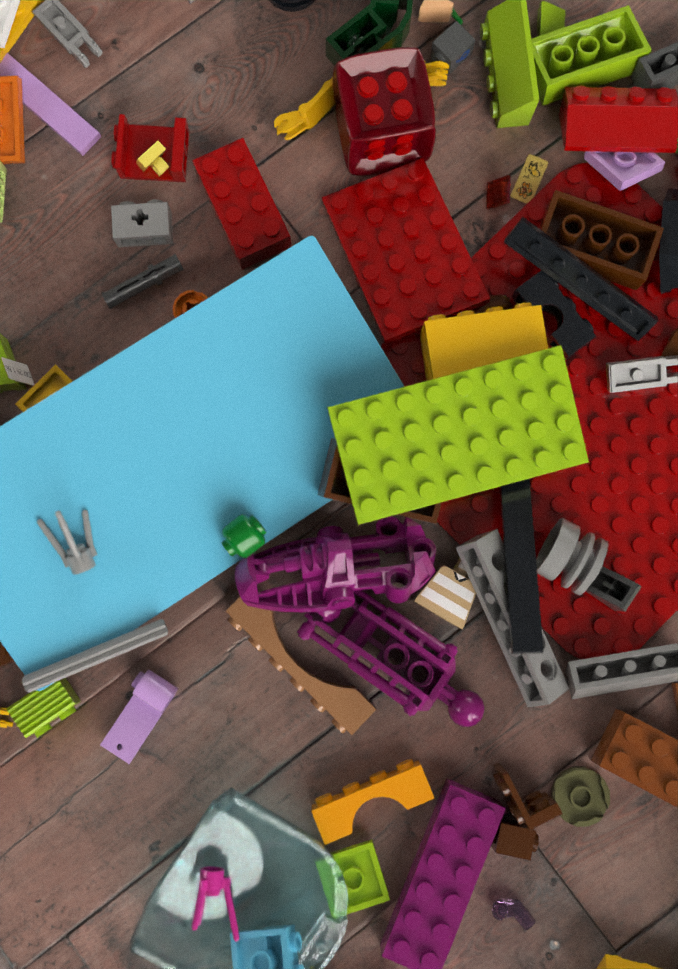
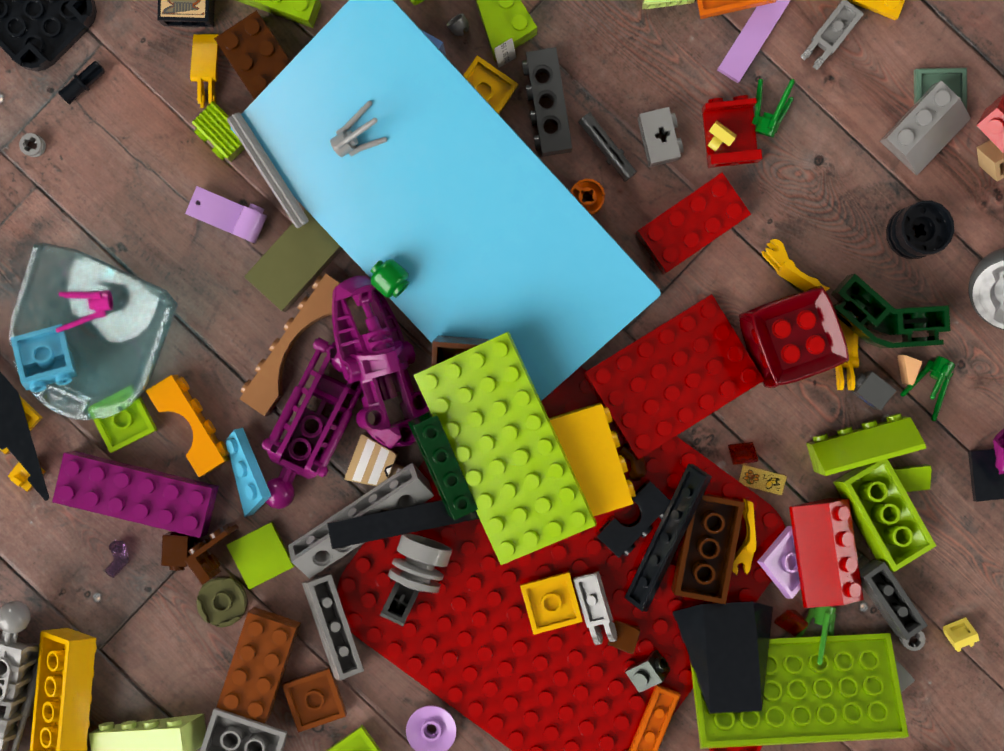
camera: 85 degrees right, 5 degrees up
(7, 933) = (41, 145): none -> light grey bush
(39, 328) = (547, 62): none -> dark grey brick
(150, 109) = (769, 123): none -> green plant
(206, 646) = (293, 263): none -> olive brick
(439, 740) = (247, 473): none -> medium azure wing
(466, 509) = (442, 465): none -> dark green brick
(533, 742) = (260, 555): none -> lime tile
(595, 195) = (748, 547): none -> yellow arm
(633, 420) = (551, 602): none -> yellow plate

